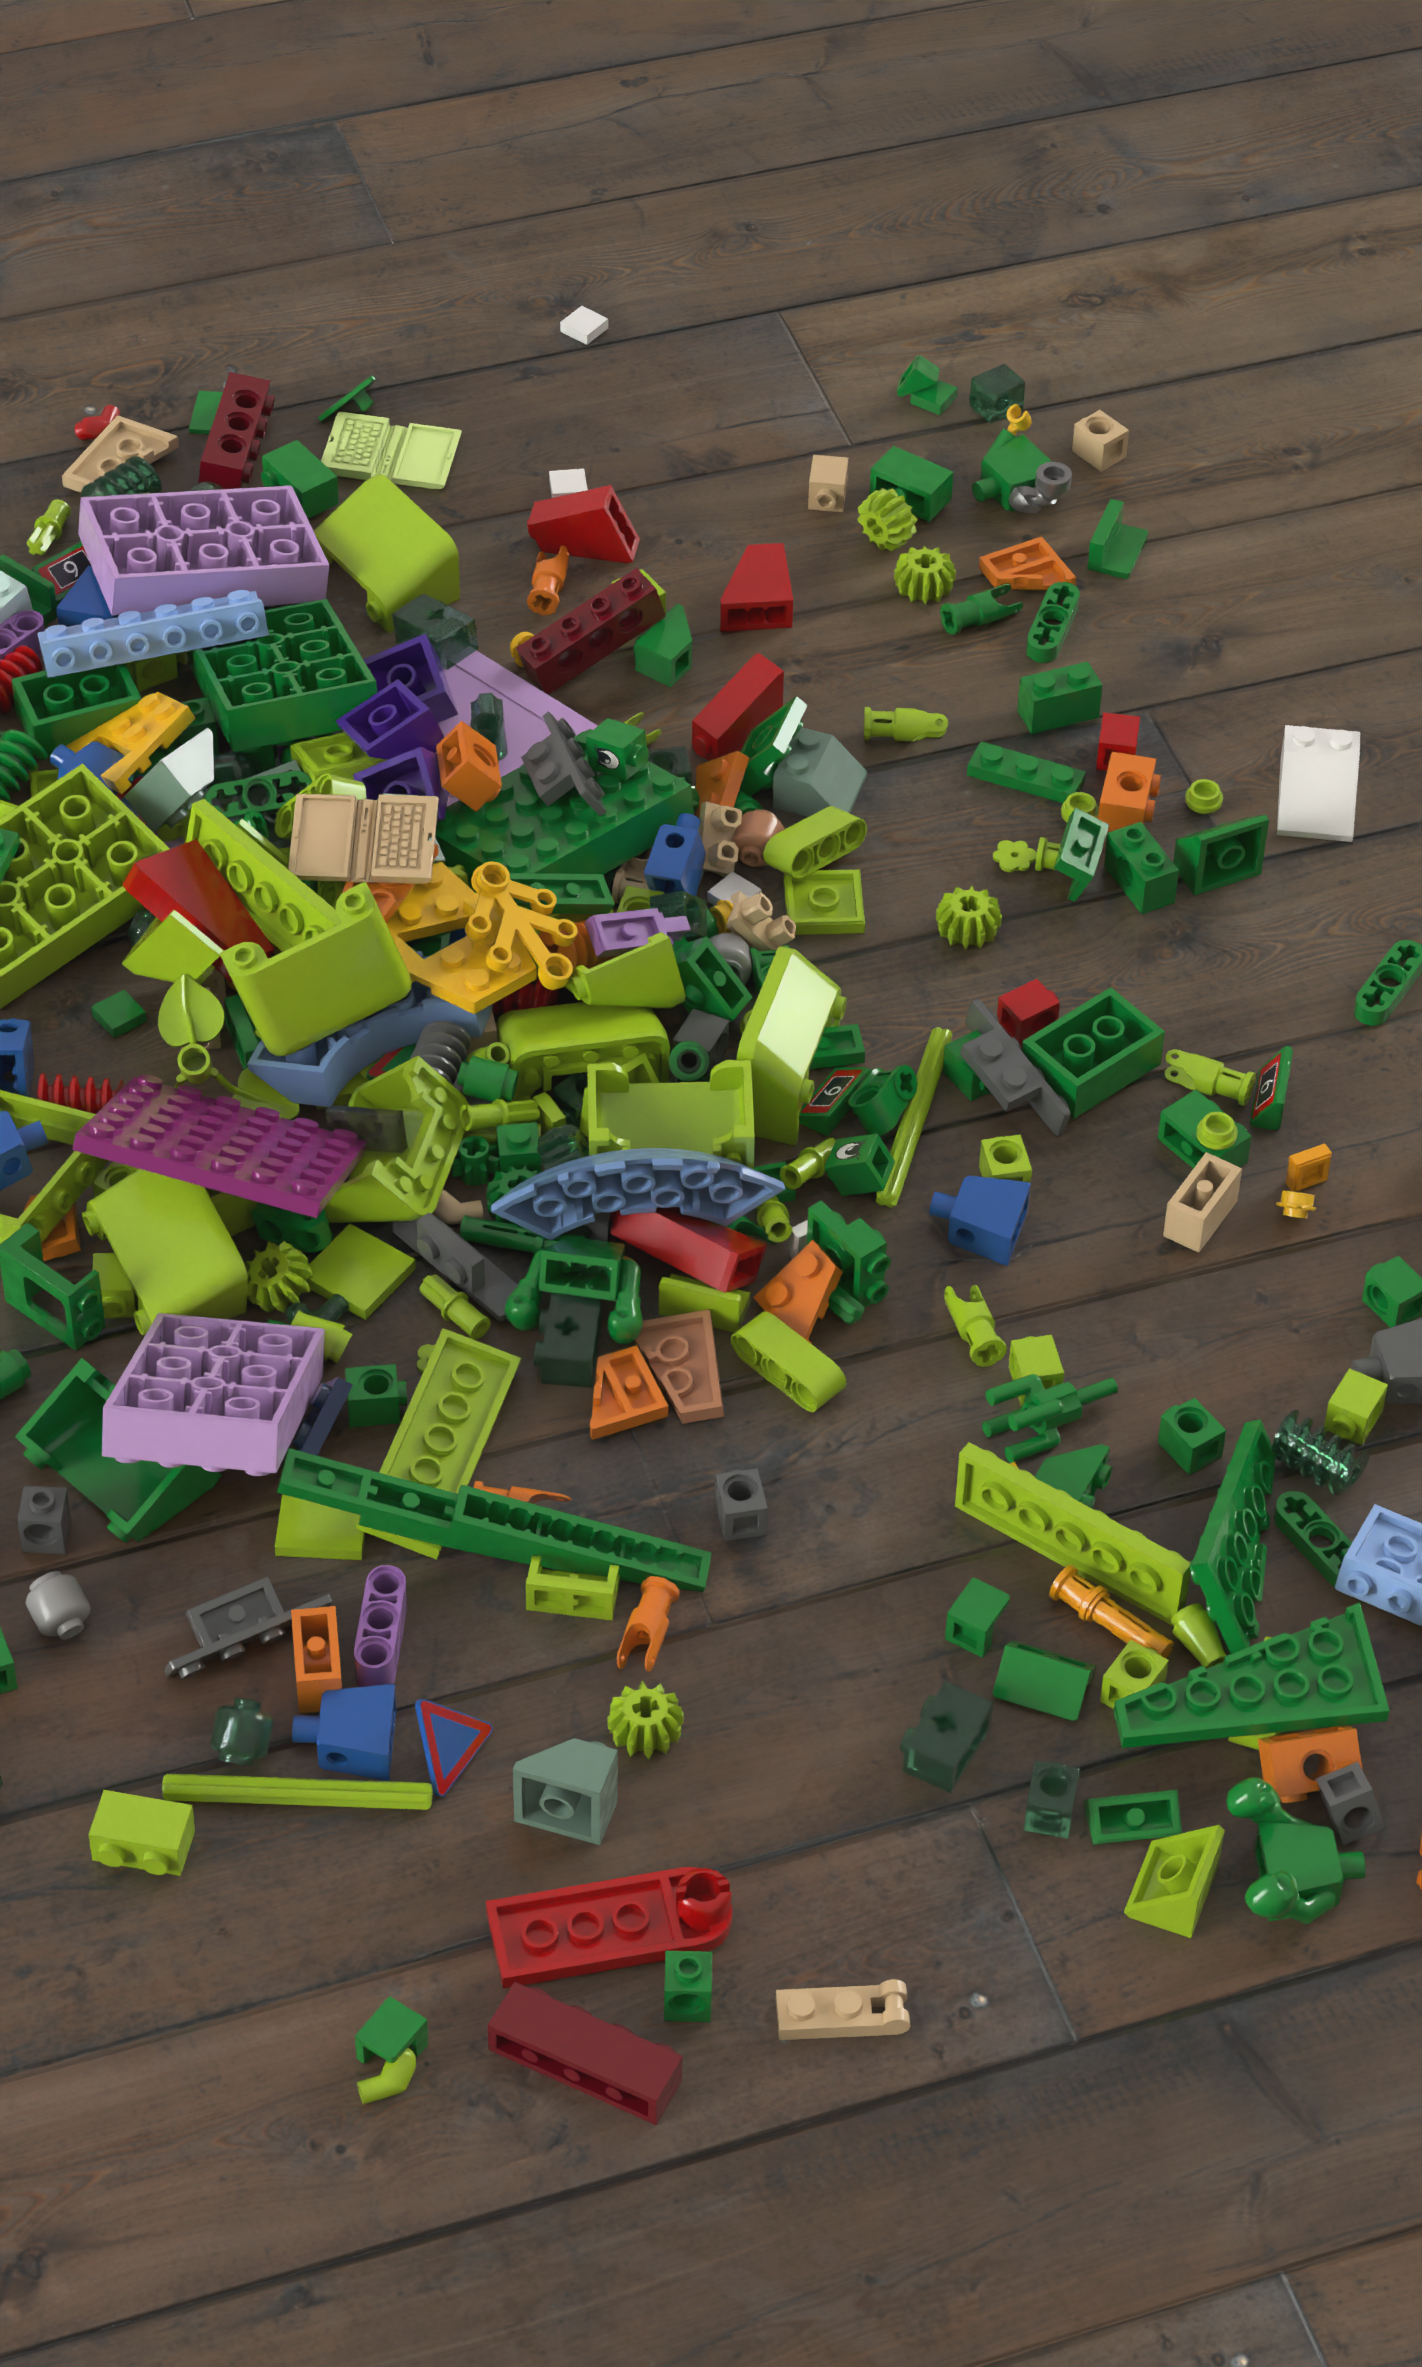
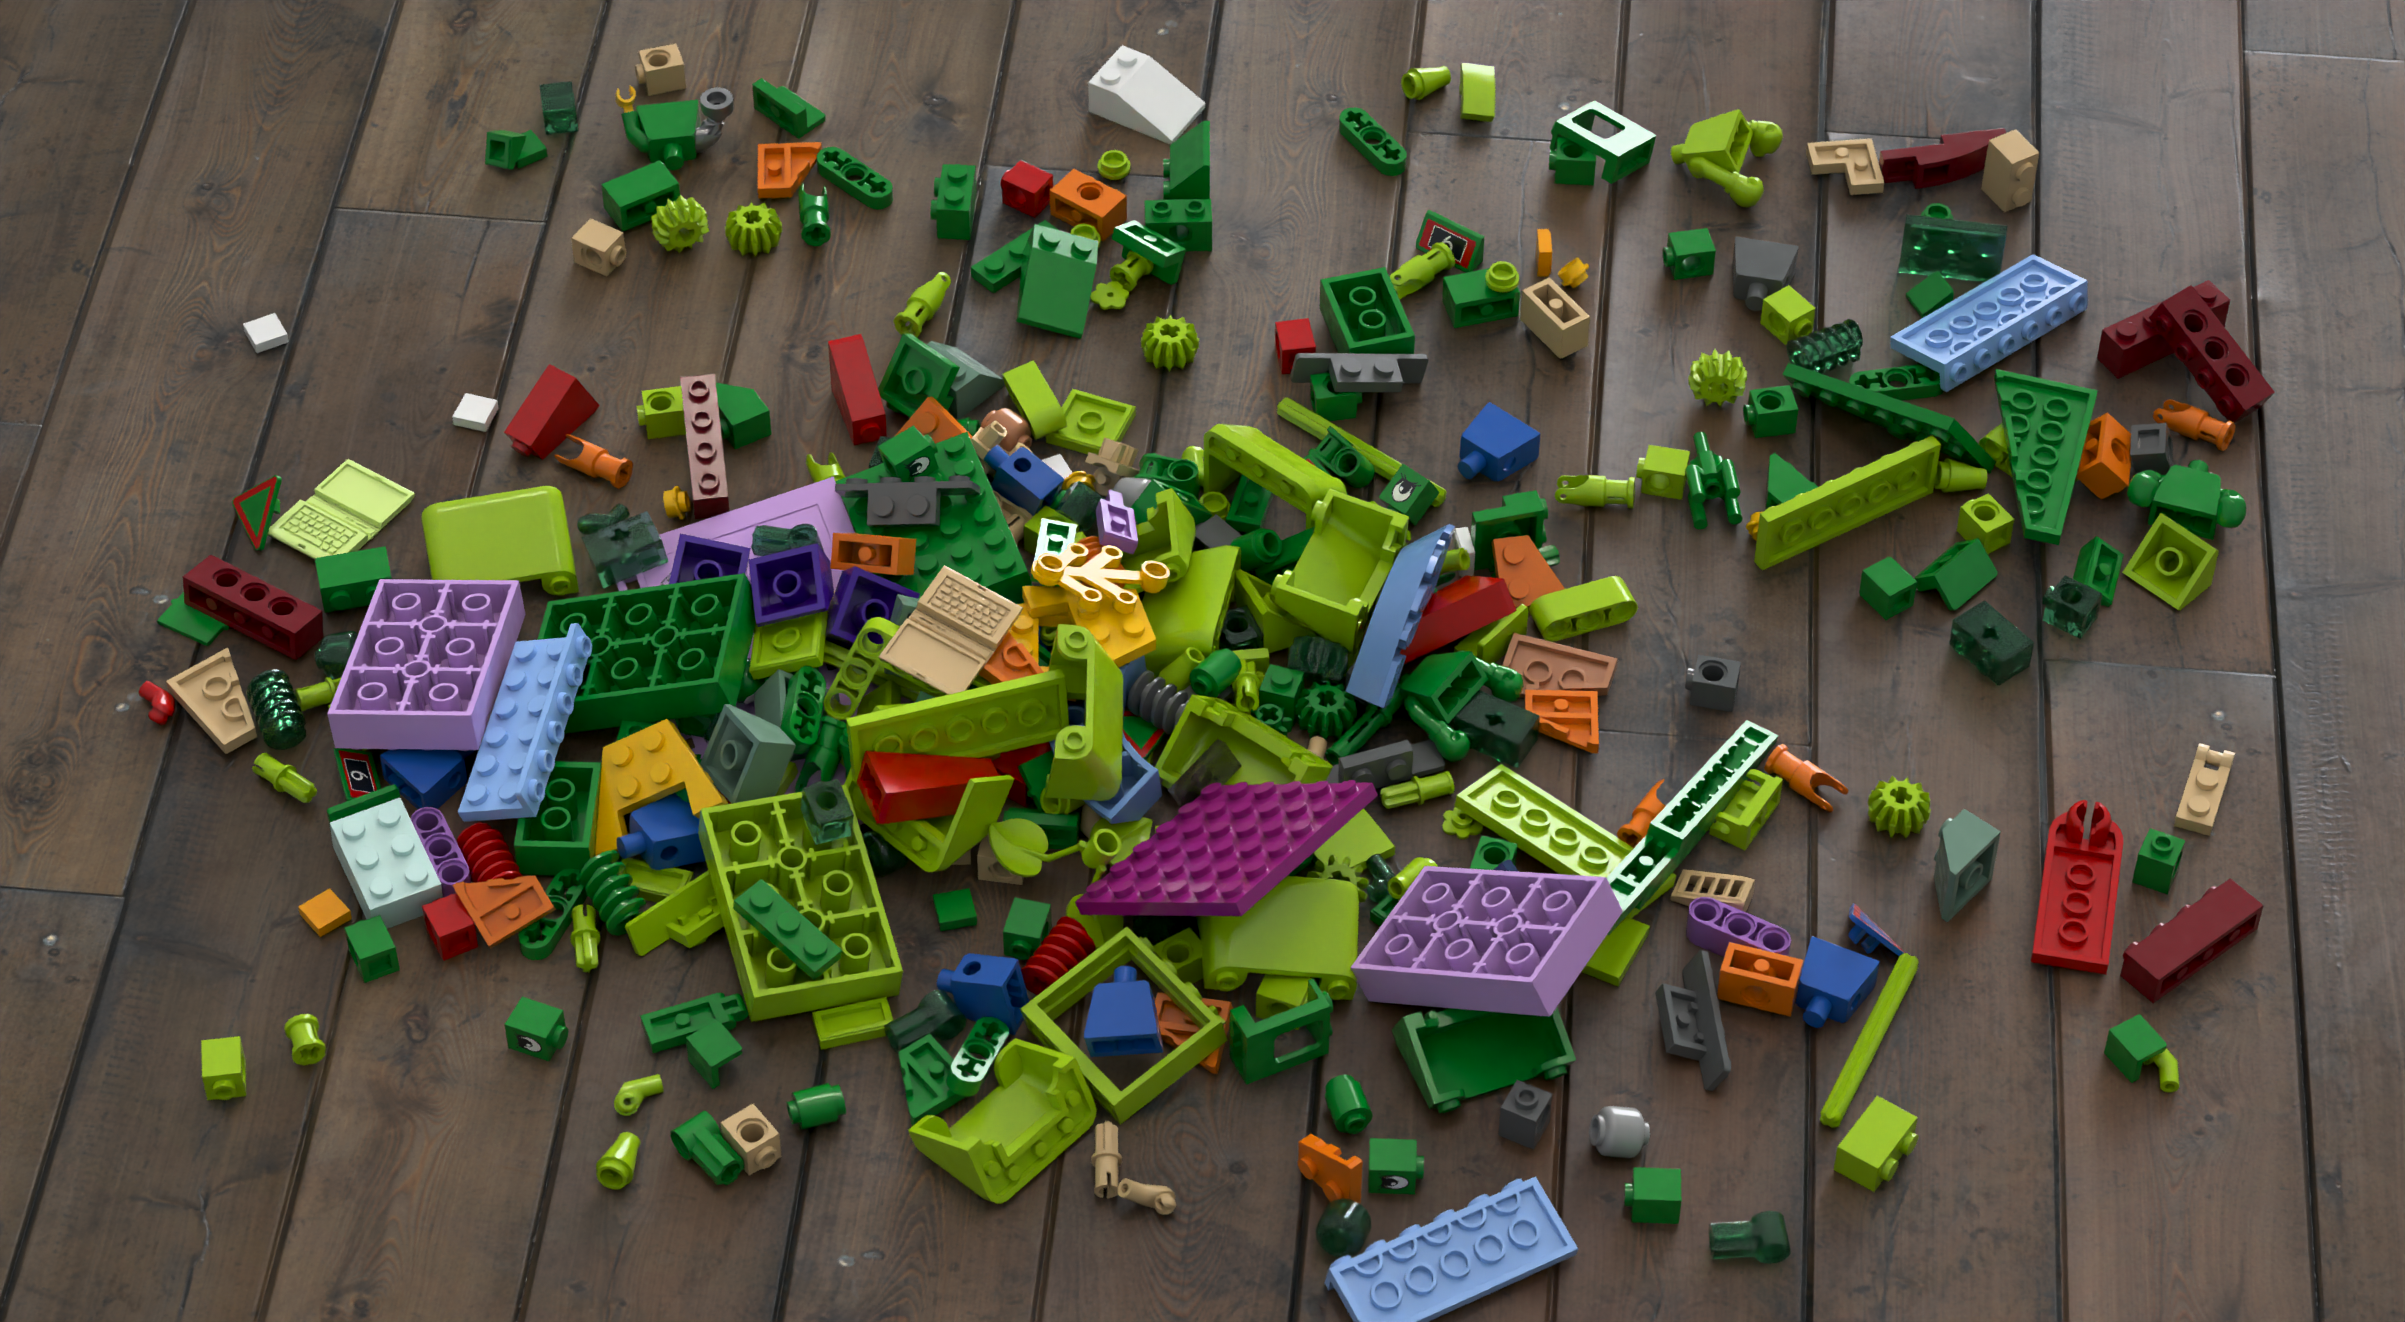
camera: 65 degrees left, 0 degrees up
(107, 1060) = (1026, 928): none -> green brick
(120, 845) = (826, 824): none -> clear green brick
(241, 1732) = (1808, 1048): clear green head -> none
(439, 1620) = (1738, 887): none -> tan slope
(470, 605) = (593, 522): none -> clear green arm
(758, 591) = (702, 332): red slope -> none
(990, 802) = (1056, 280): none -> green slope
(1005, 1159) = (1449, 415): lime brick -> none
(1095, 1605) = (1903, 521): light orange pin -> none
(1201, 1366) = (1717, 378): none -> lime gear

